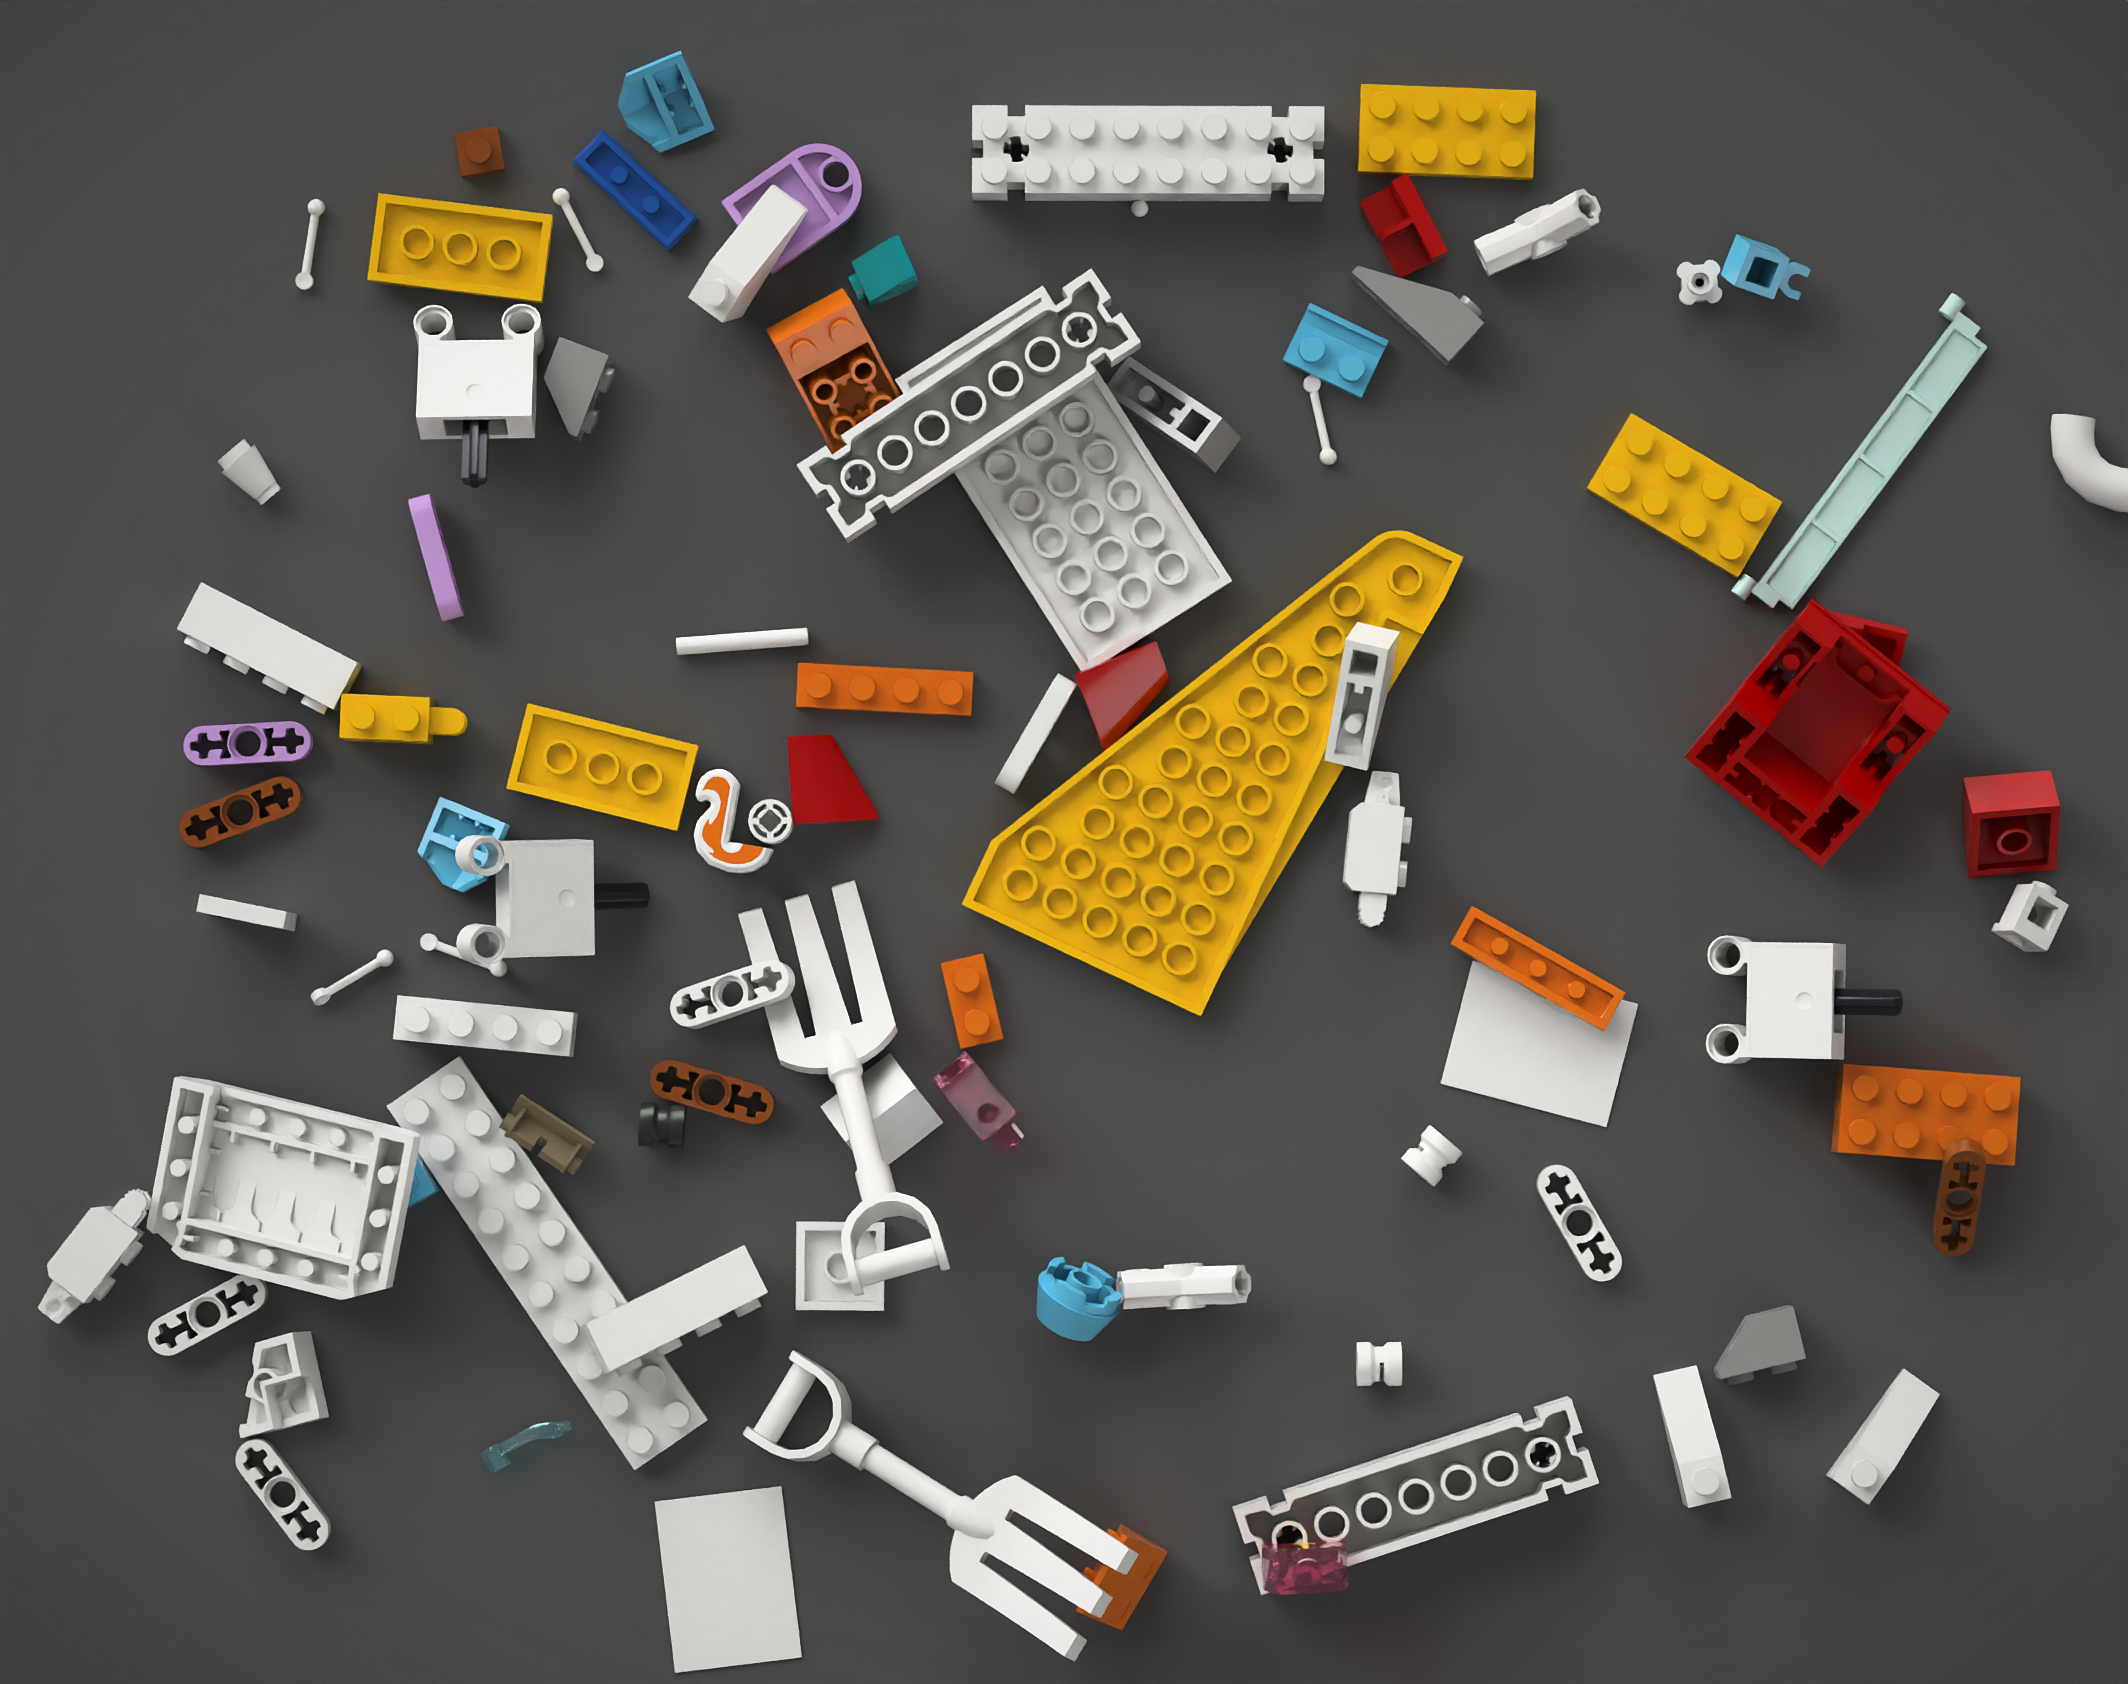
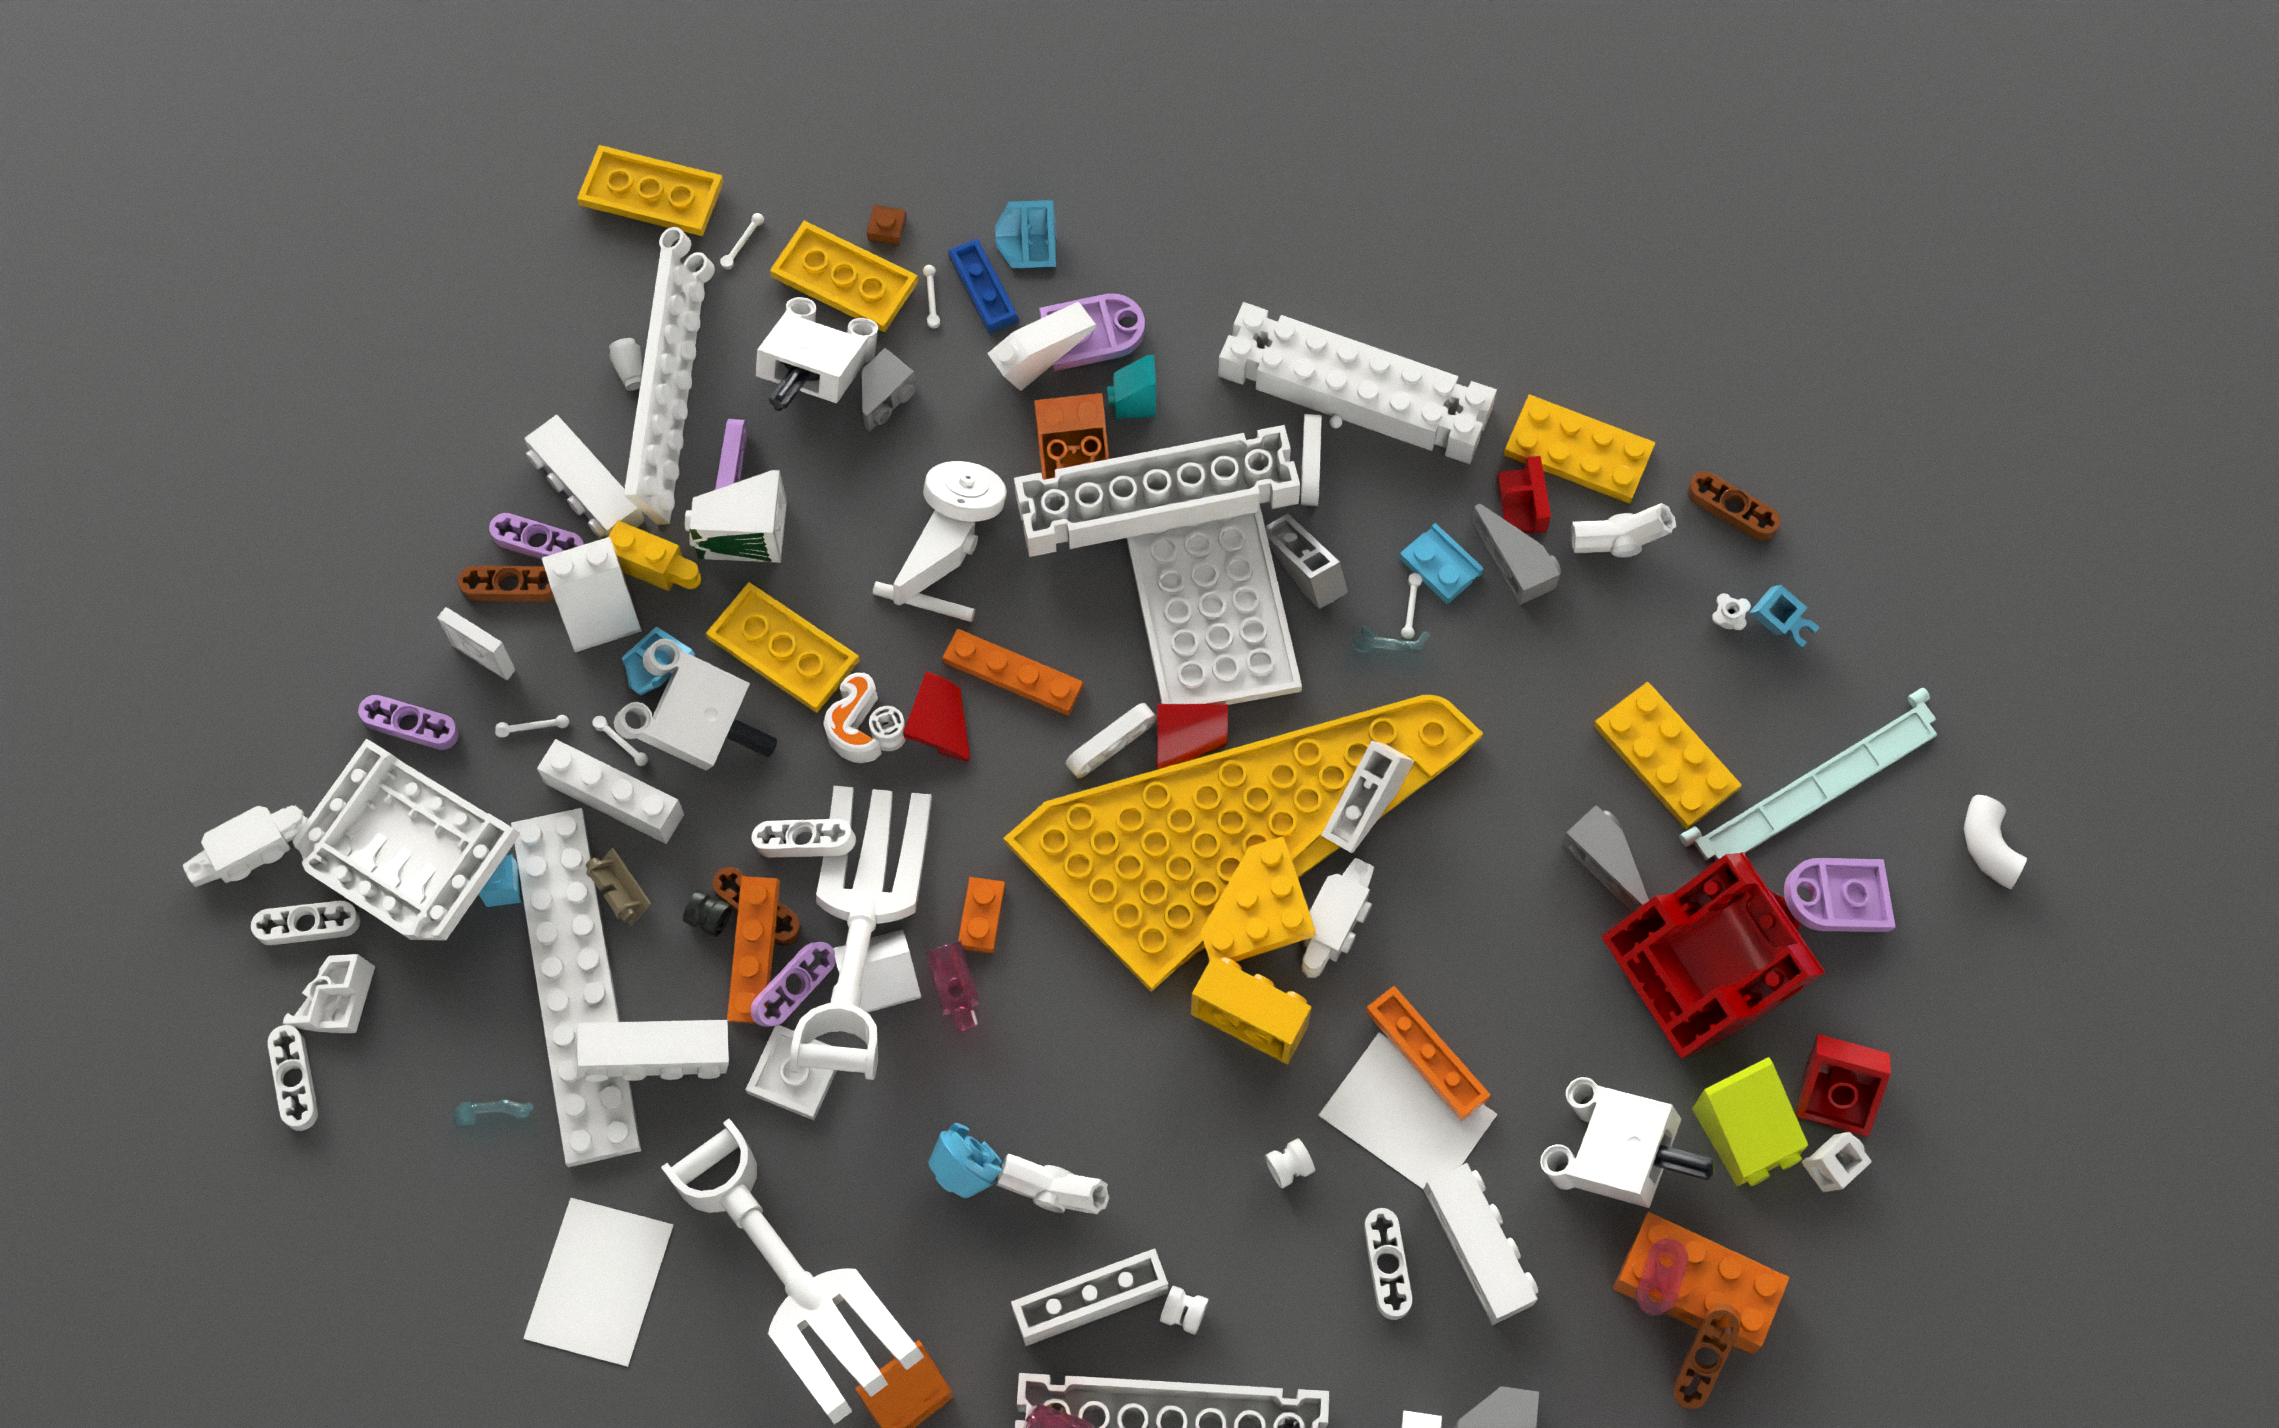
camera: 20 degrees right, 20 degrees down
(166, 222) = (650, 190): none -> yellow plate
(174, 1044) = (419, 733): none -> lavender beam
(311, 479) = (666, 377): none -> white hinge
(355, 799) = (591, 594): none -> white slope
(487, 634) = (740, 520): none -> white slope
(734, 1148) = (753, 945): none -> orange plate
(735, 487) = (964, 491): none -> white wheel
(736, 575) = (934, 555): none -> white slope
(781, 1180) = (768, 995): none -> lavender beam
(1131, 277) = (1311, 460): none -> white beam
(1273, 1393) = (1090, 1297): none -> white brick
(1287, 877) = (1259, 906): none -> yellow plate
(1315, 478) = (1390, 644): none -> clear light blue piece
(1325, 1000) = (1250, 1009): none -> yellow brick
(1654, 649) = (1605, 852): none -> light grey slope
(1672, 1164) = (1480, 1243): none -> white brick
(1686, 156) = (1729, 491): none -> dark orange beam
(1884, 1138) = (1662, 1278): none -> clear pink plate
(1924, 914) = (1751, 1123): none -> neon yellow slope
(1941, 598) = (1843, 894): none -> lavender plate

